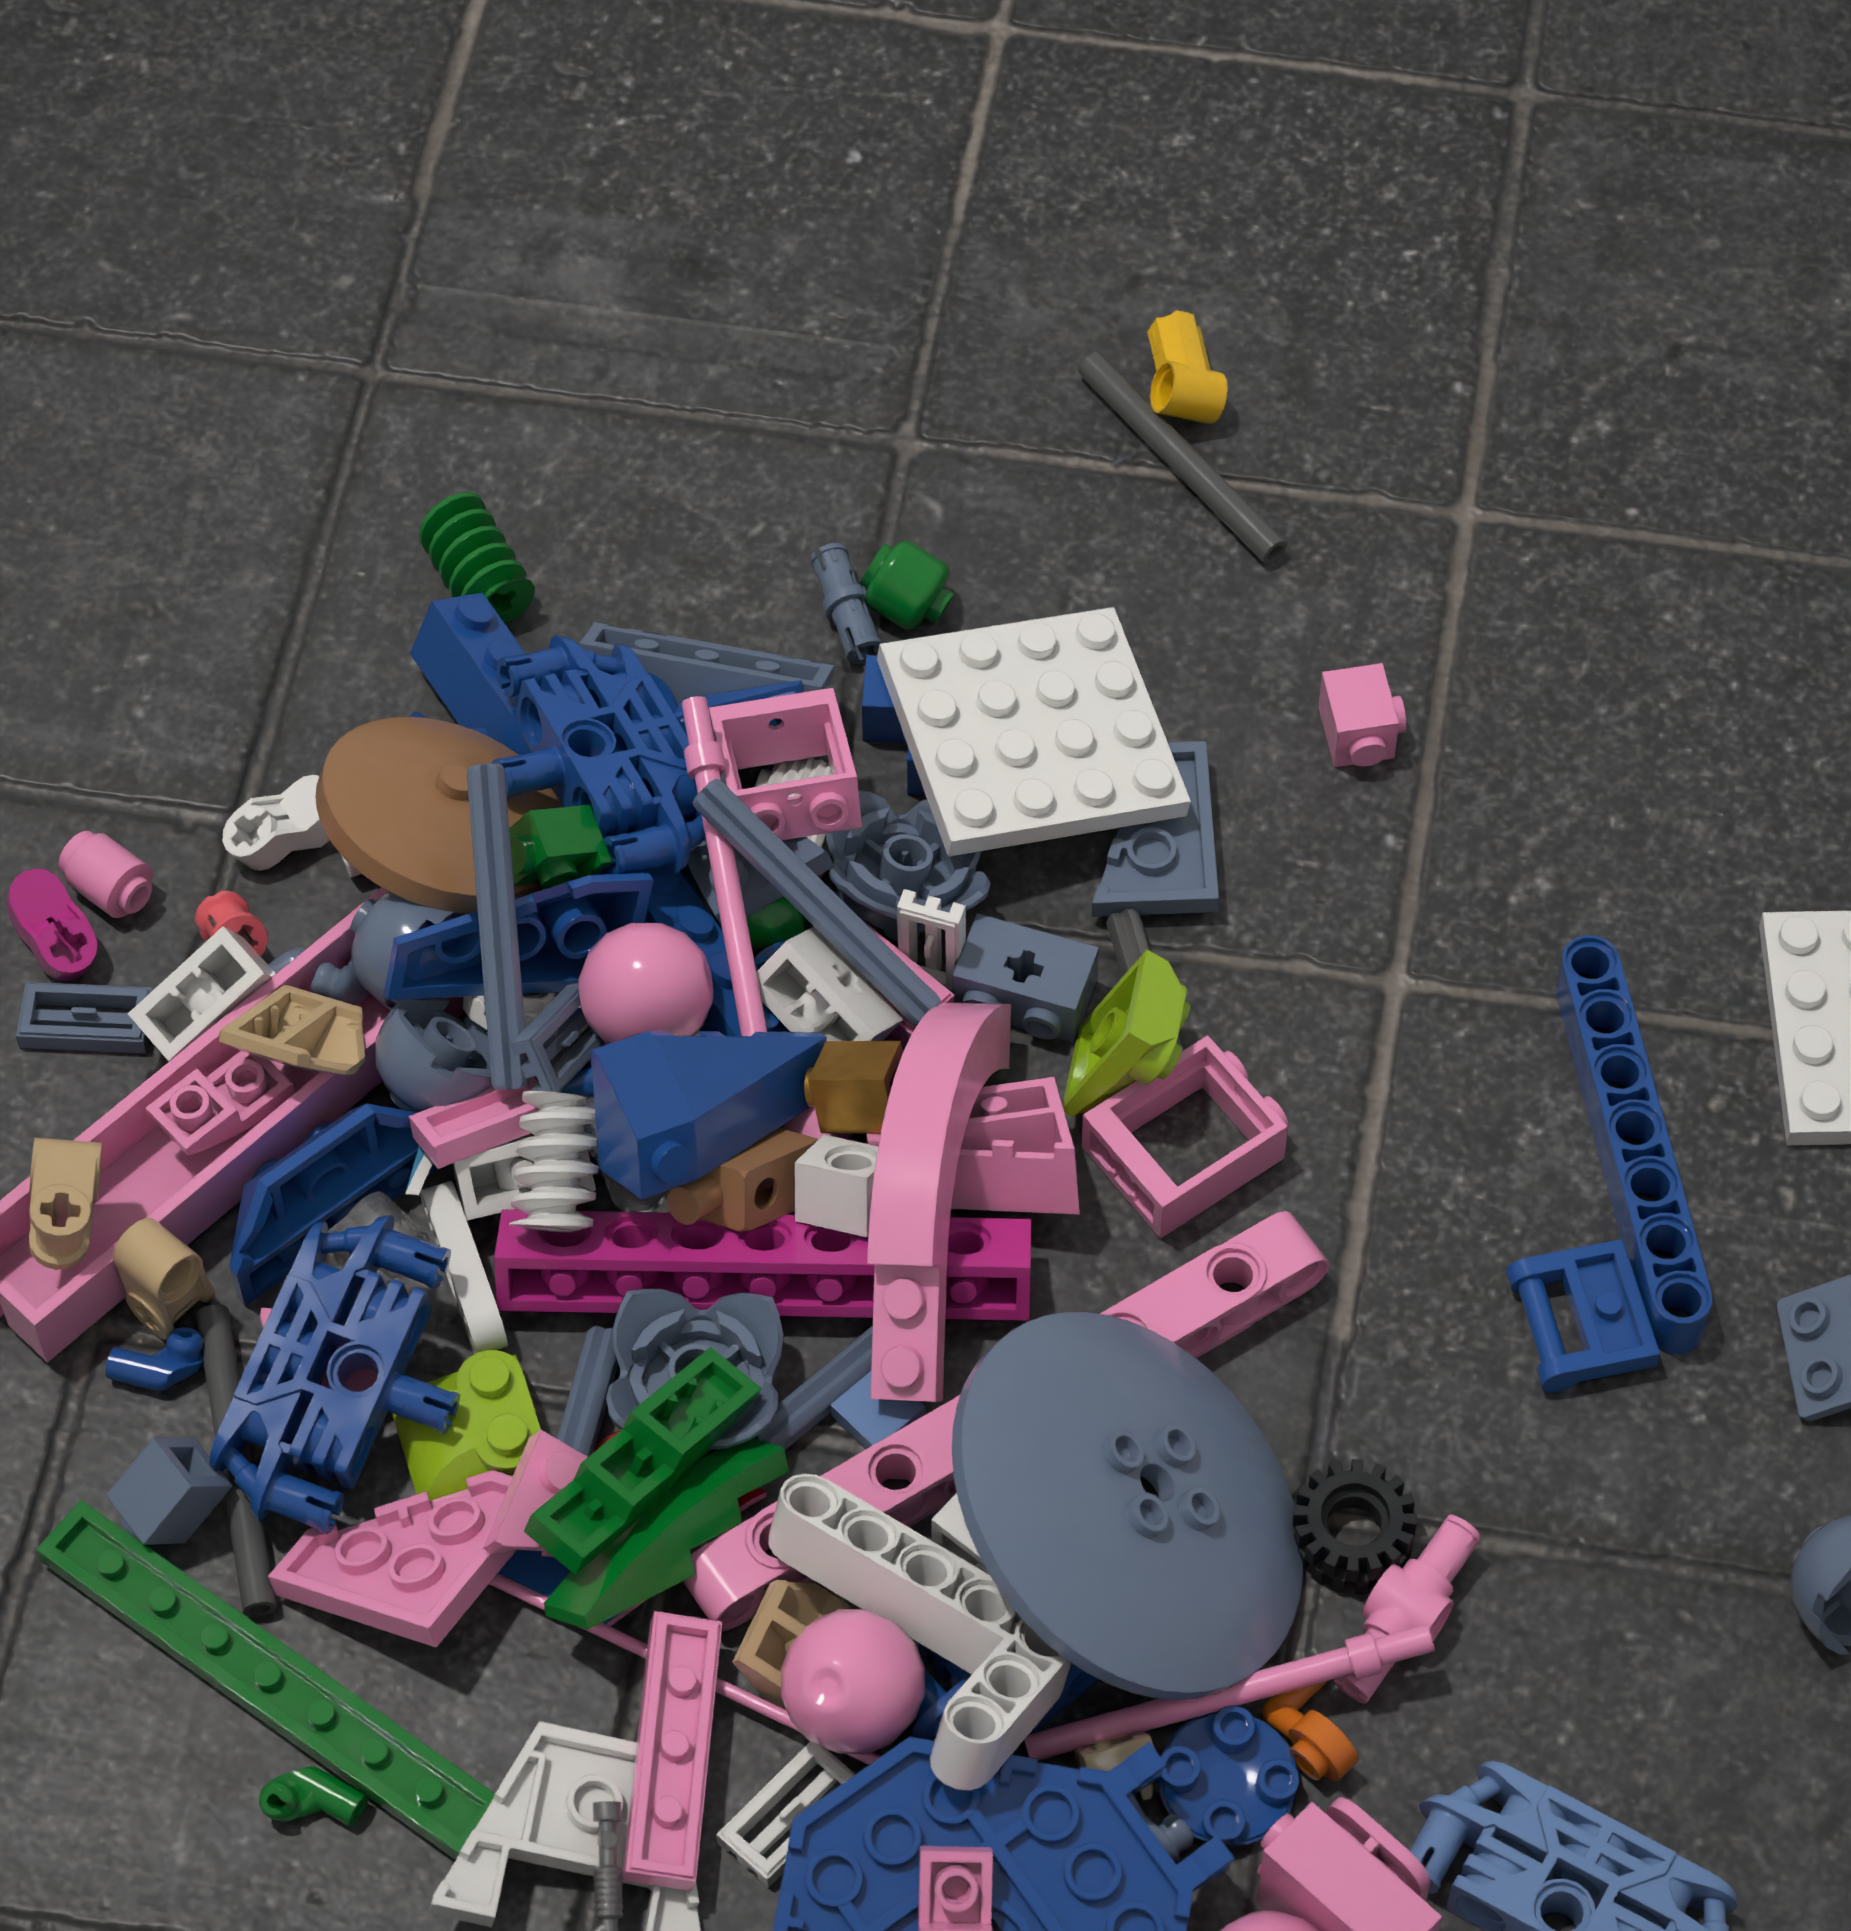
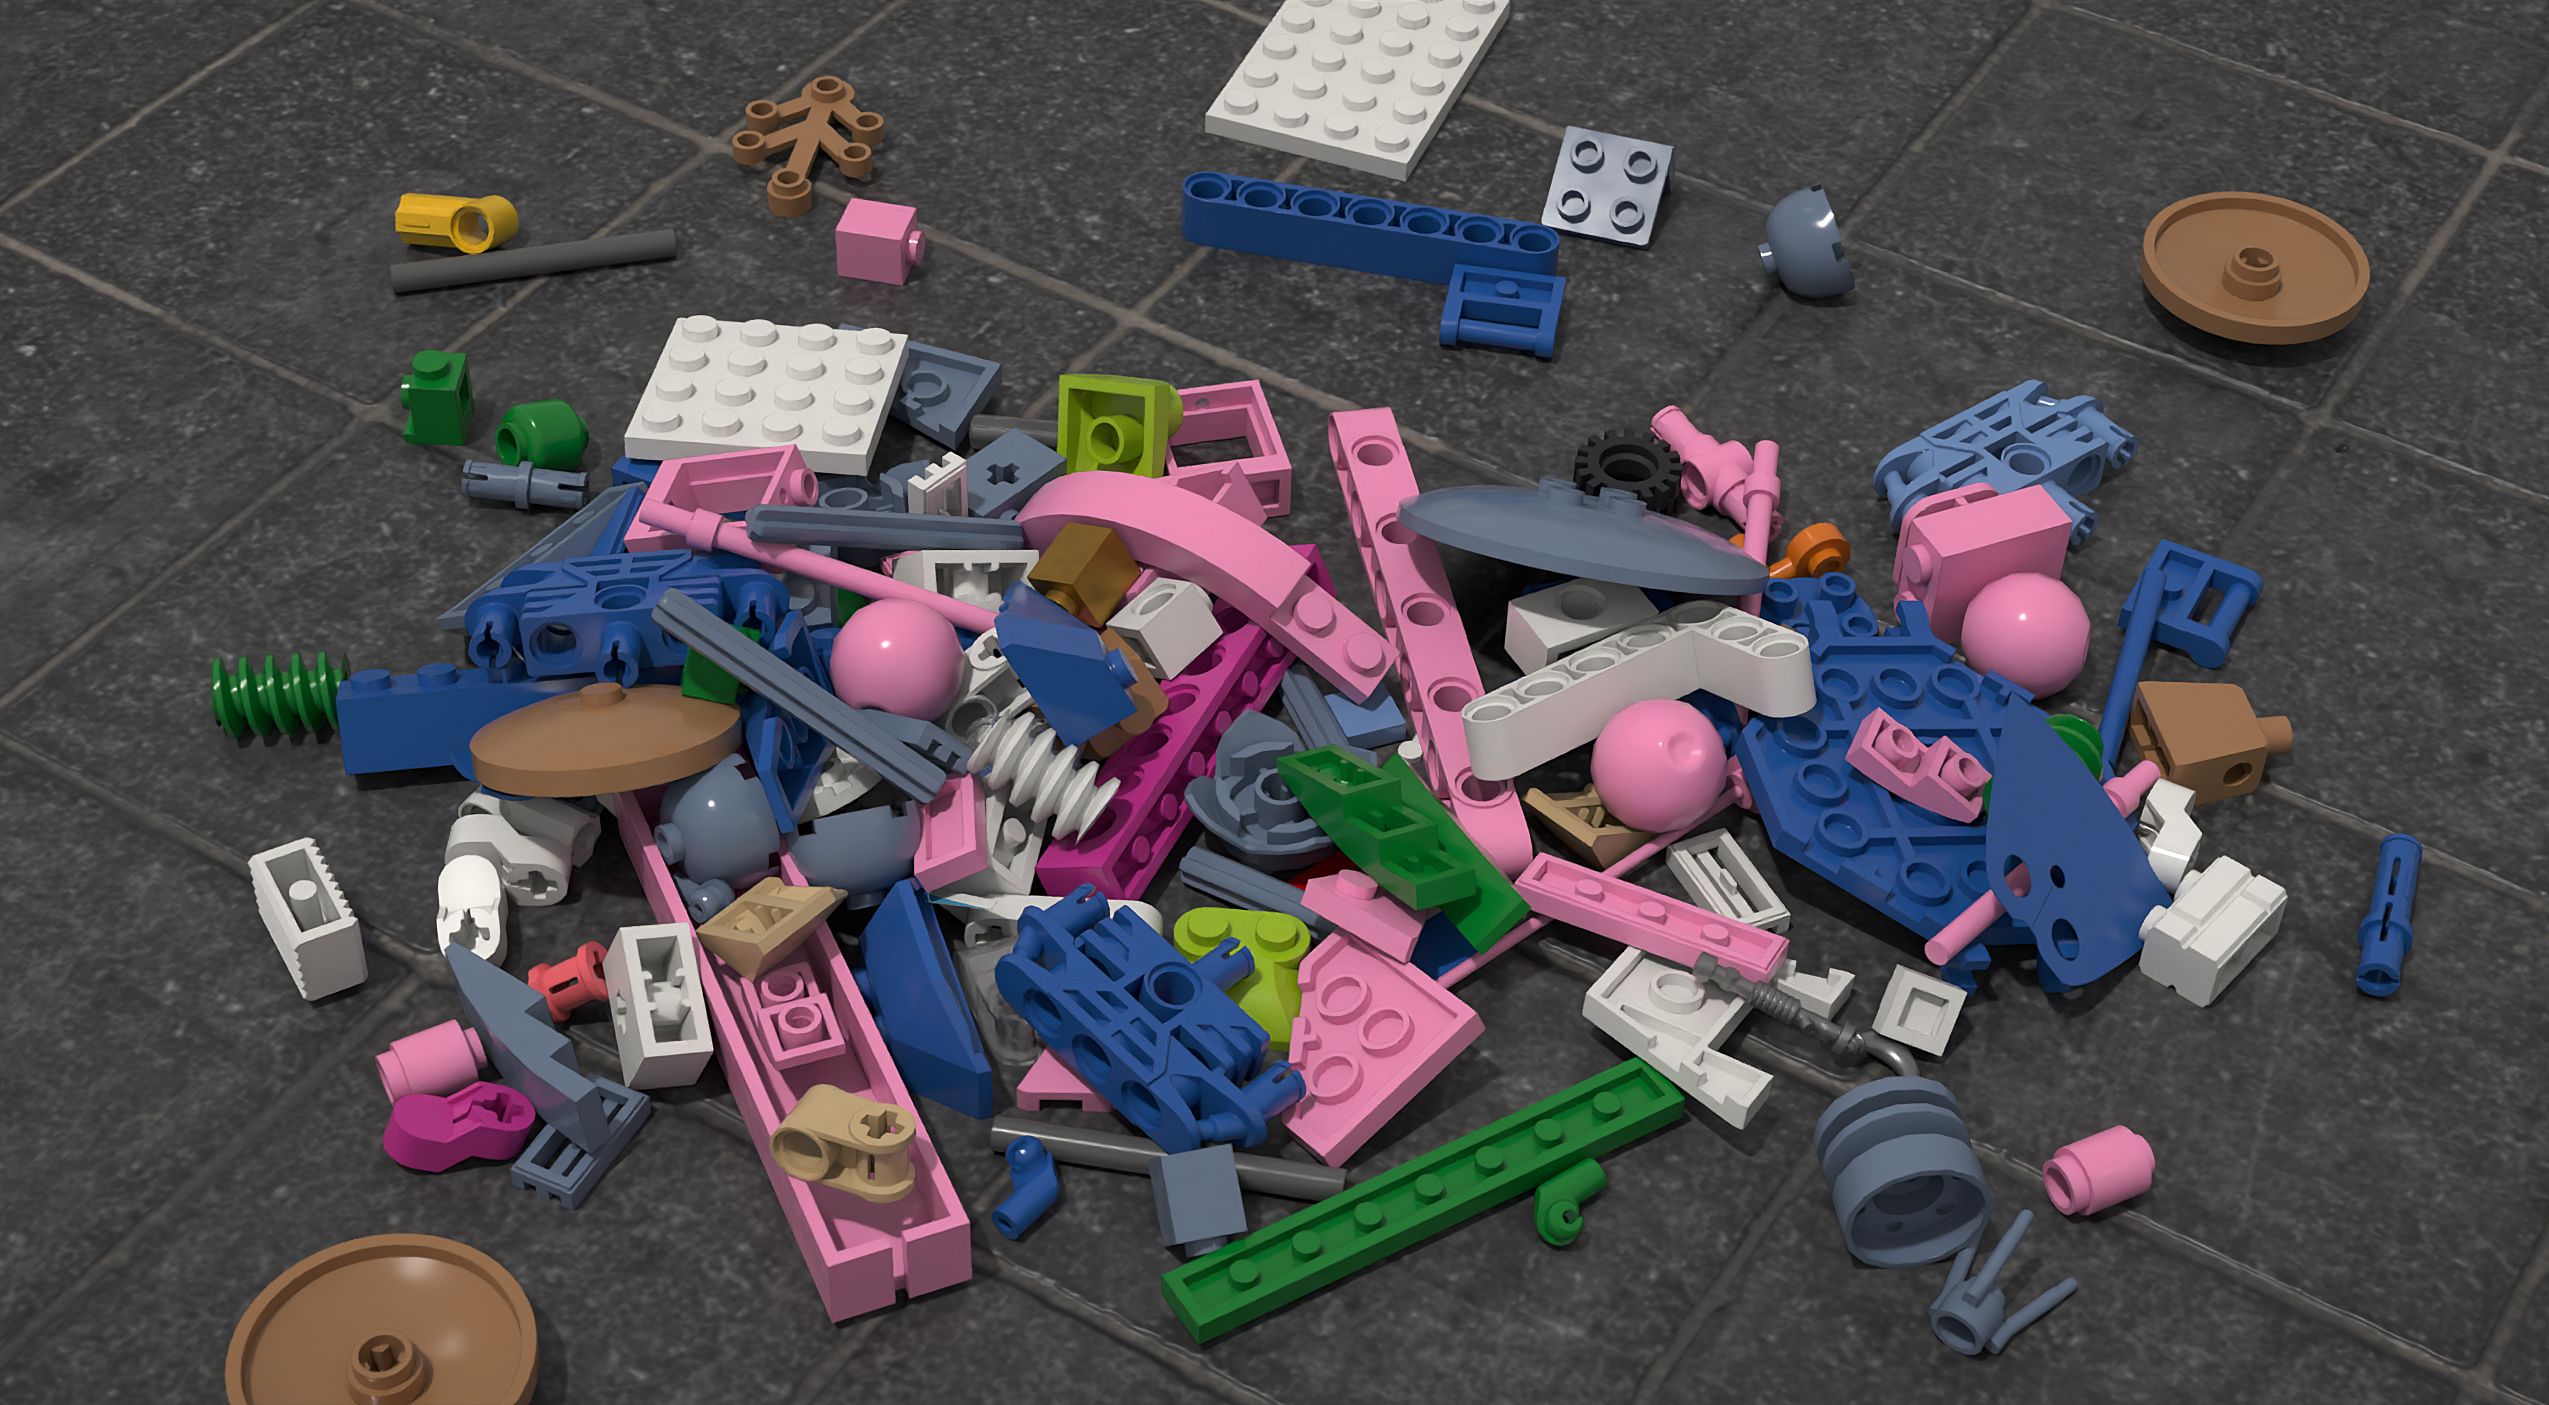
camera: 70 degrees left, 15 degrees down
(143, 915) = (526, 1049): none -> sand blue slope
(159, 1275) = (964, 1127): tan piece -> none
(211, 710) = (309, 918): none -> white brick
(913, 466) = (438, 399): none -> green brick
(1504, 584) = (825, 102): none -> medium nougat plant

